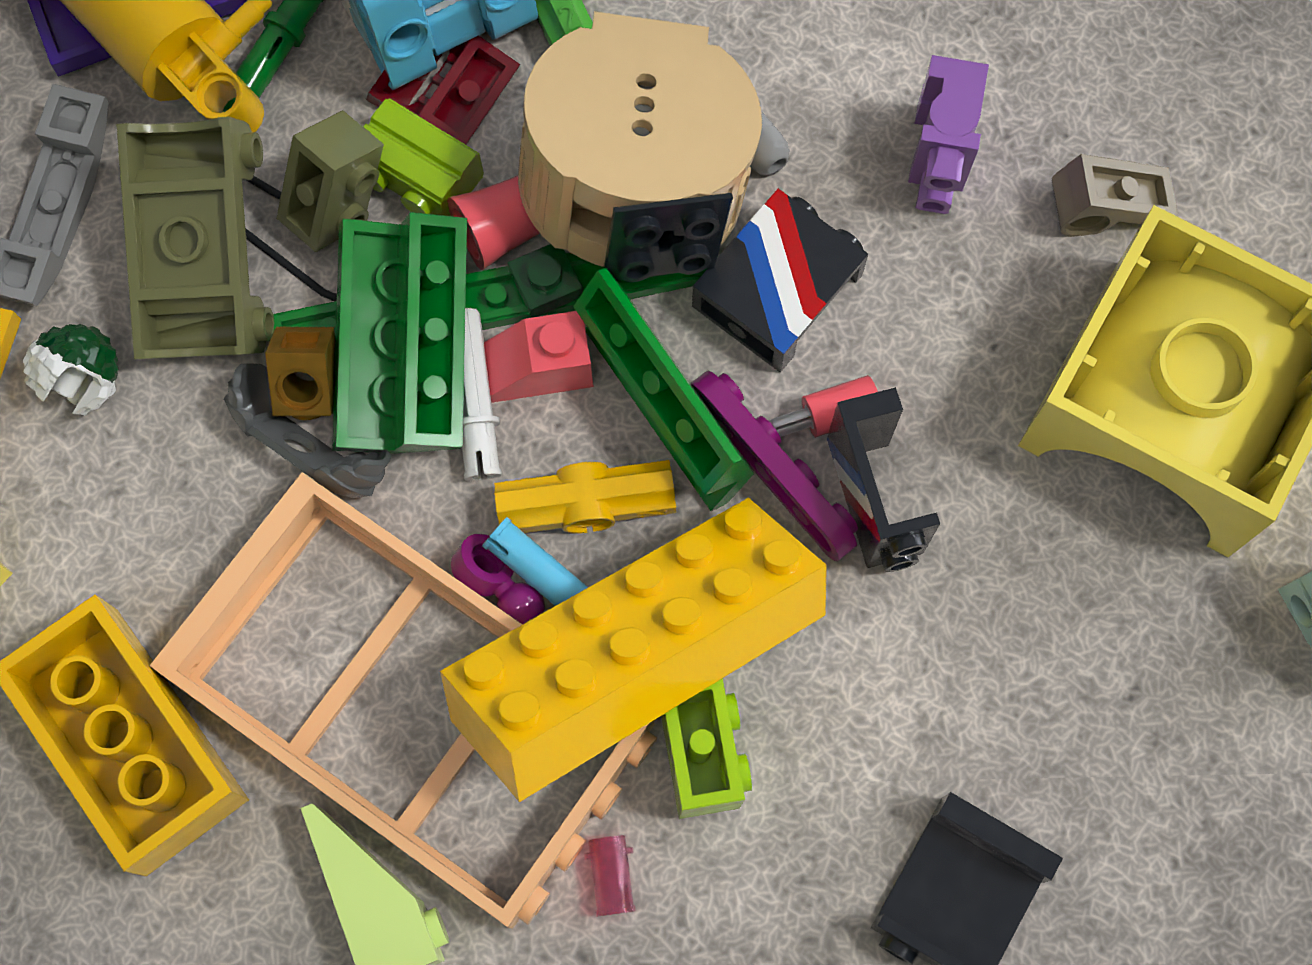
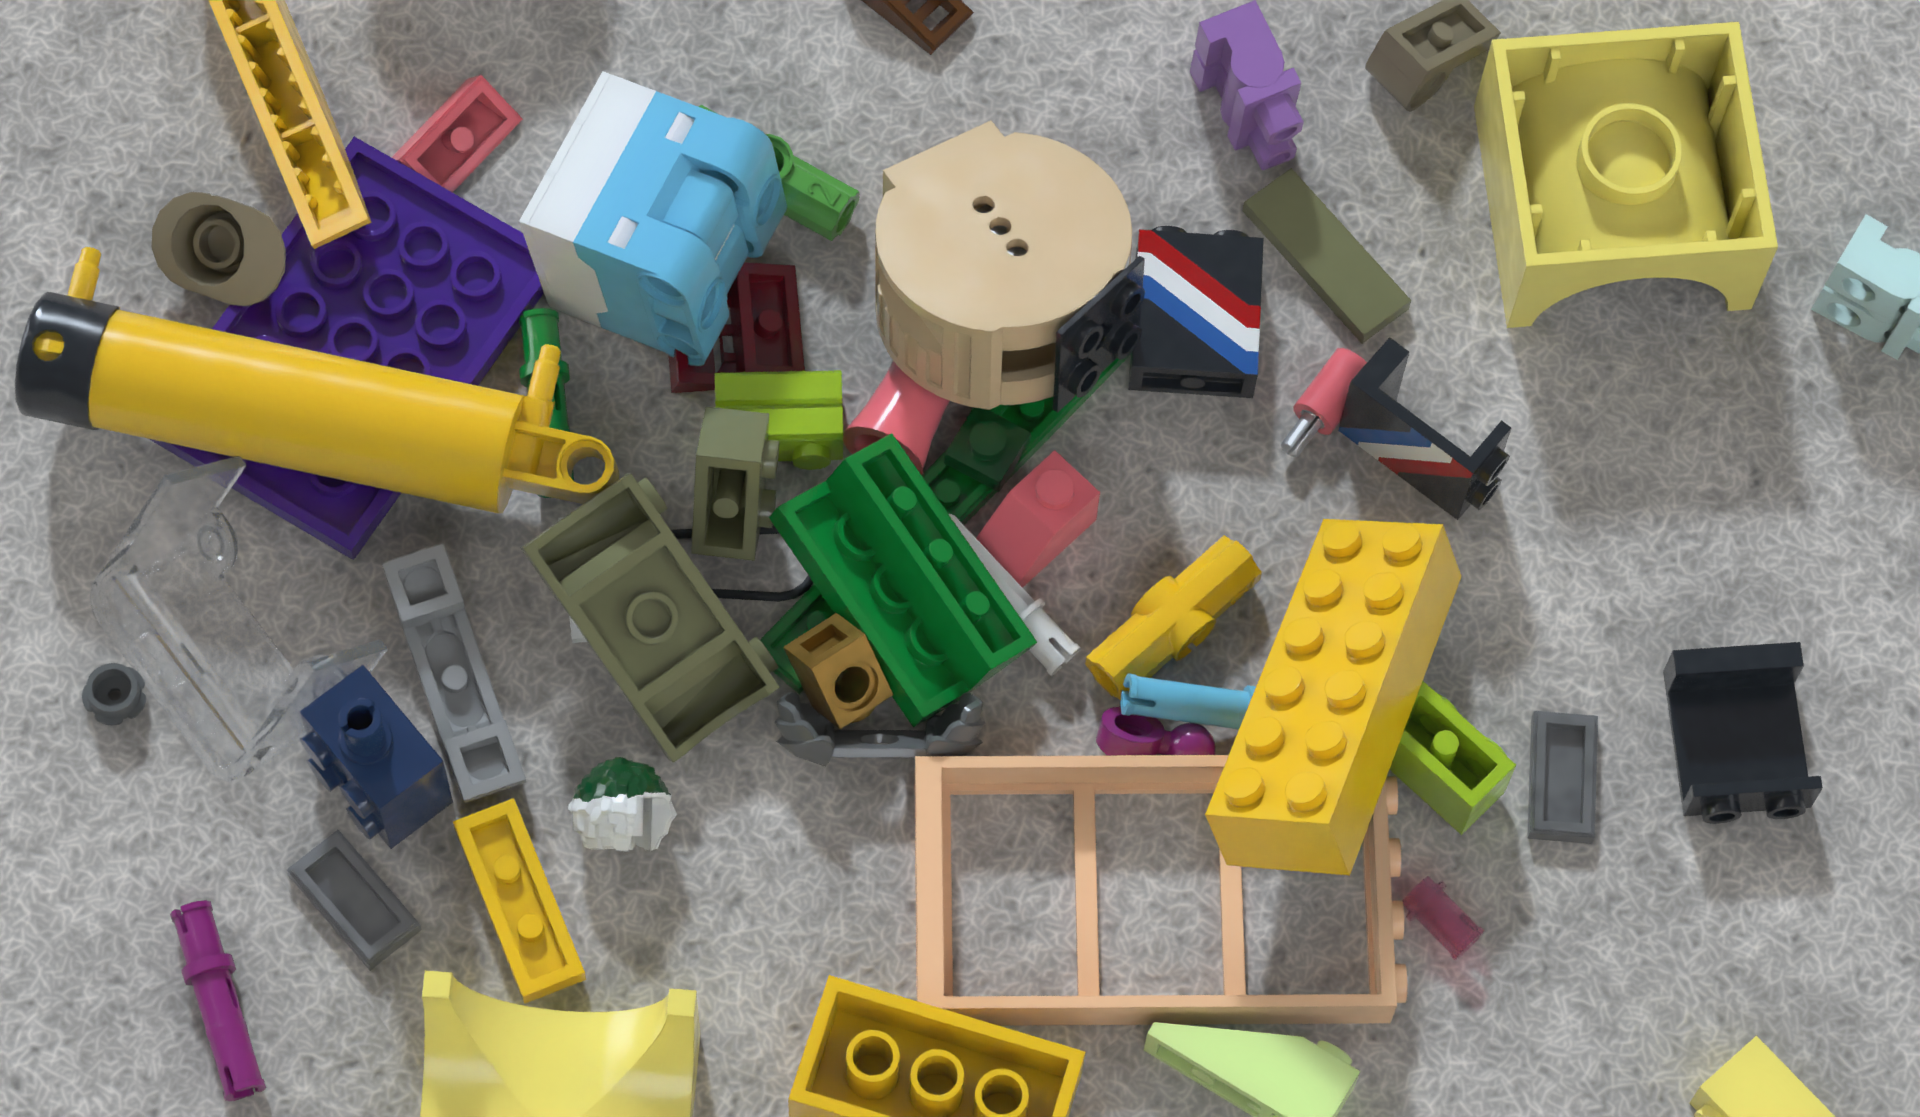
camera: 40 degrees left, 5 degrees down
(662, 391) = (1182, 476): green slope -> none
(789, 481) = (1293, 475): magenta plate -> none
(794, 828) = (1562, 777): none -> flat silver tile
(916, 302) = (1326, 255): none -> olive tile

